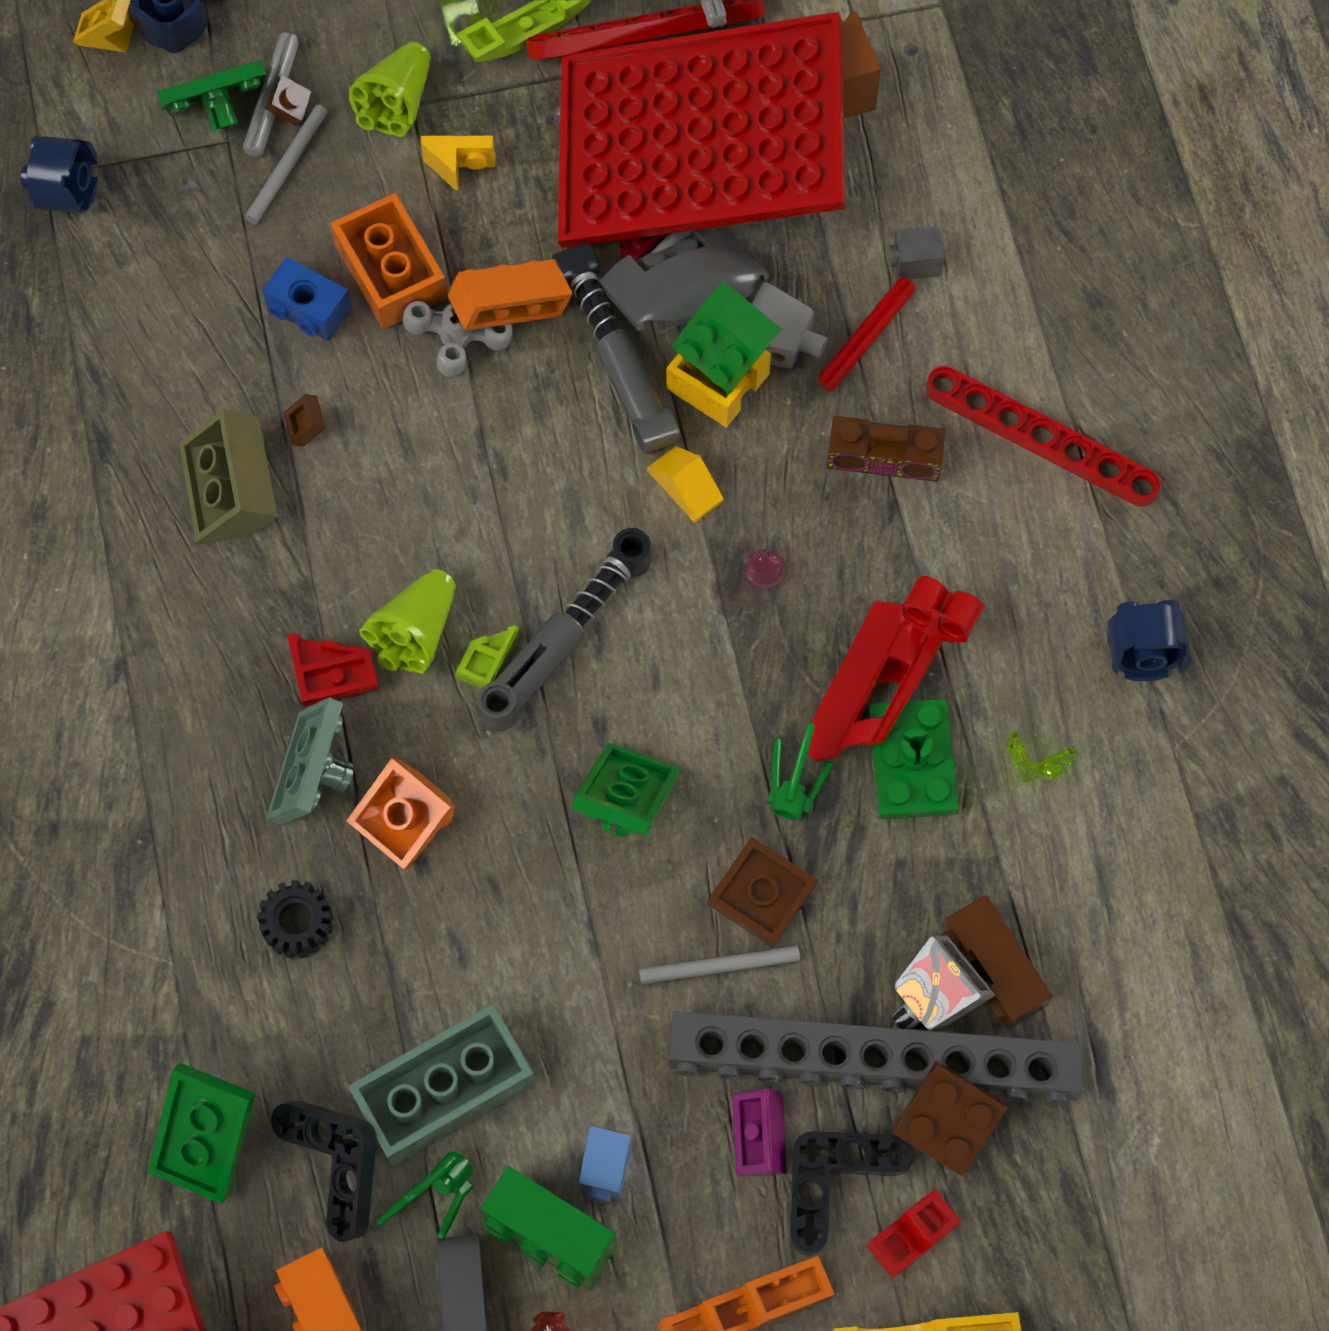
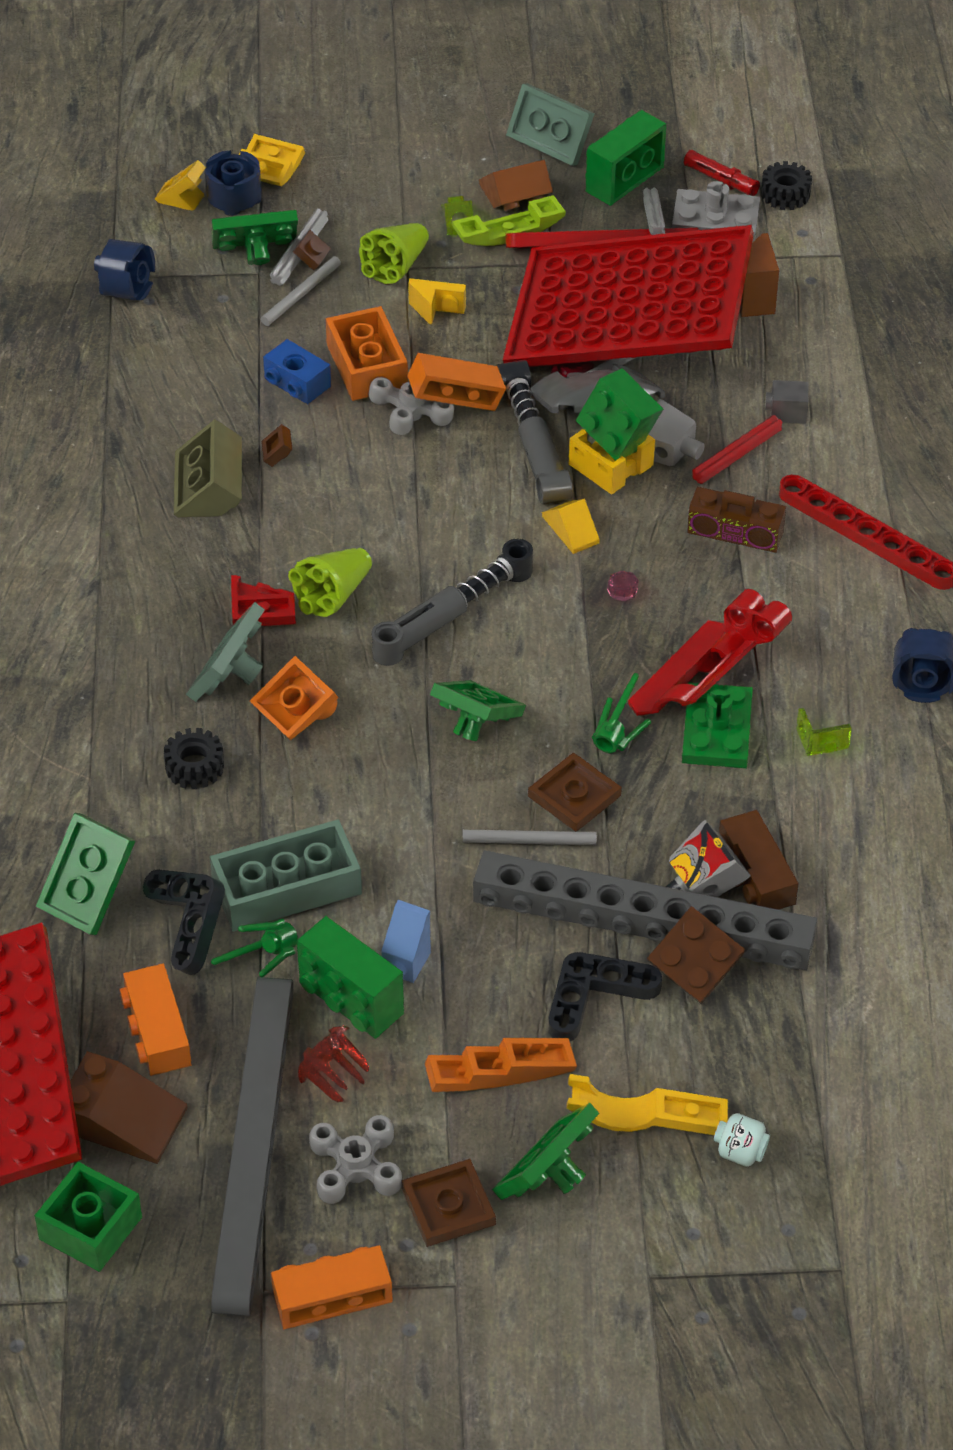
camera: 10 degrees right, 20 degrees down
(486, 657) = (385, 611): lime tile -> none
(759, 1133) = (538, 952): magenta slope -> none
(913, 1233) = (655, 1036): red slope -> none

